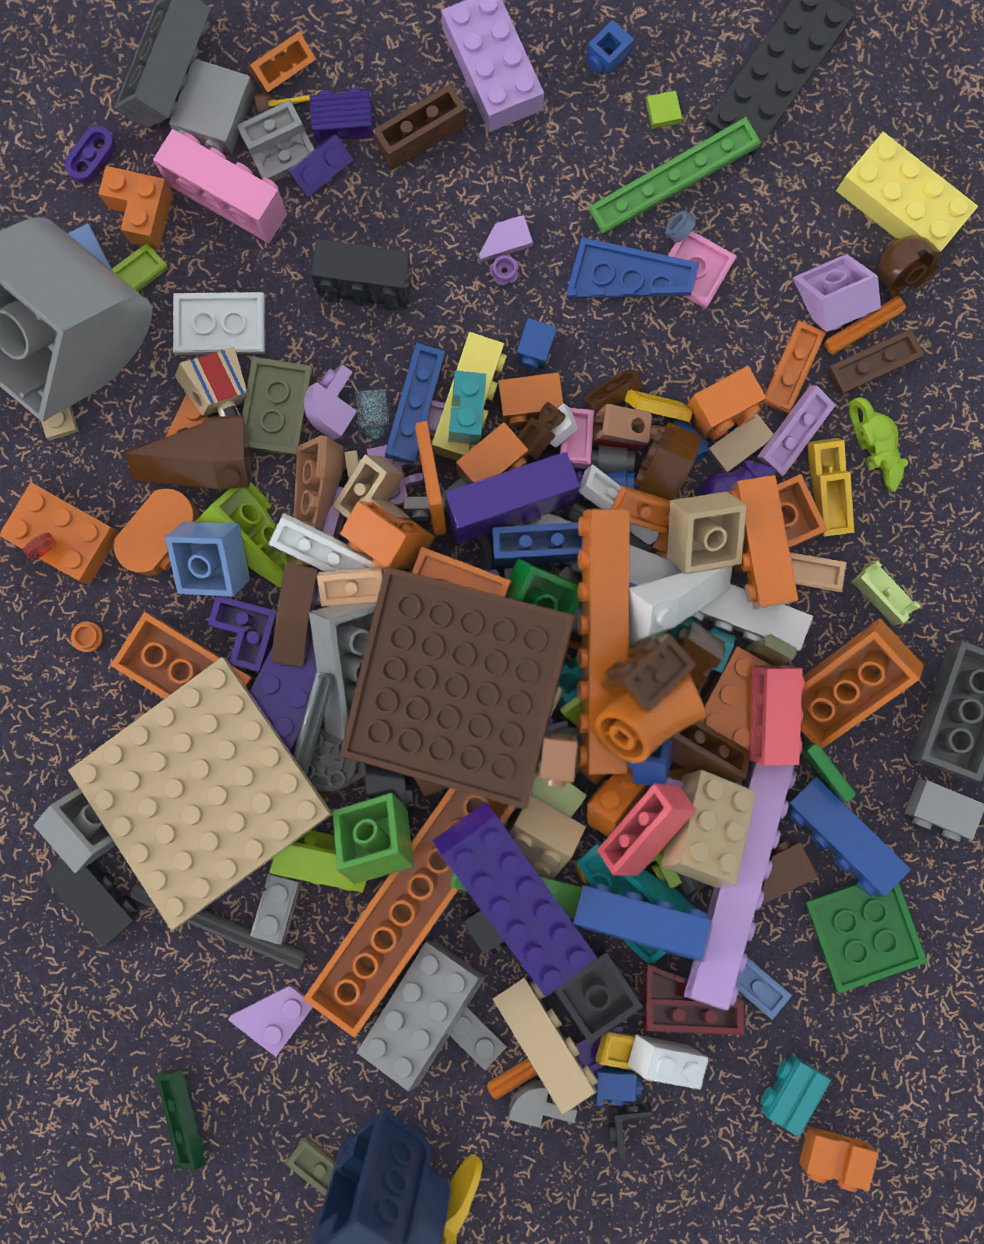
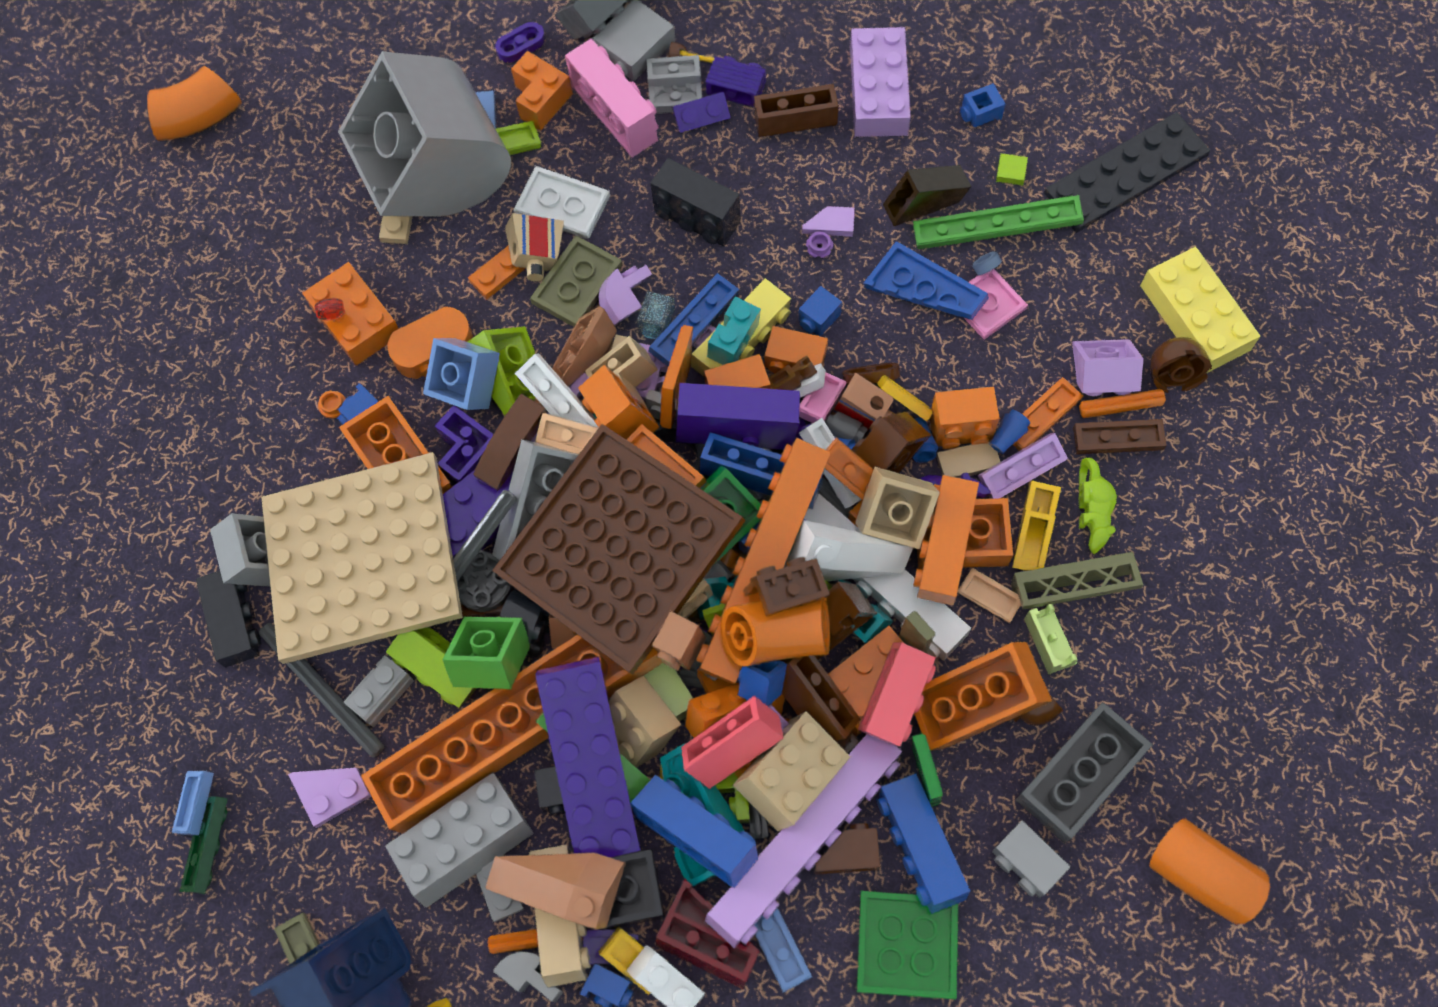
camera: 30 degrees right, 15 degrees down
(115, 631) = (356, 404): none -> blue brick
(149, 1085) = (192, 803): none -> medium blue tile
(202, 456) = (496, 294): reddish brown wedge -> none
(281, 62) = (704, 25): orange brick -> none
(541, 1026) = (565, 885): none -> nougat wedge
(590, 171) = (925, 192): none -> dark brown slope
(777, 395) = (1010, 430): none -> blue cone
(882, 523) = (1077, 574): none -> olive fence

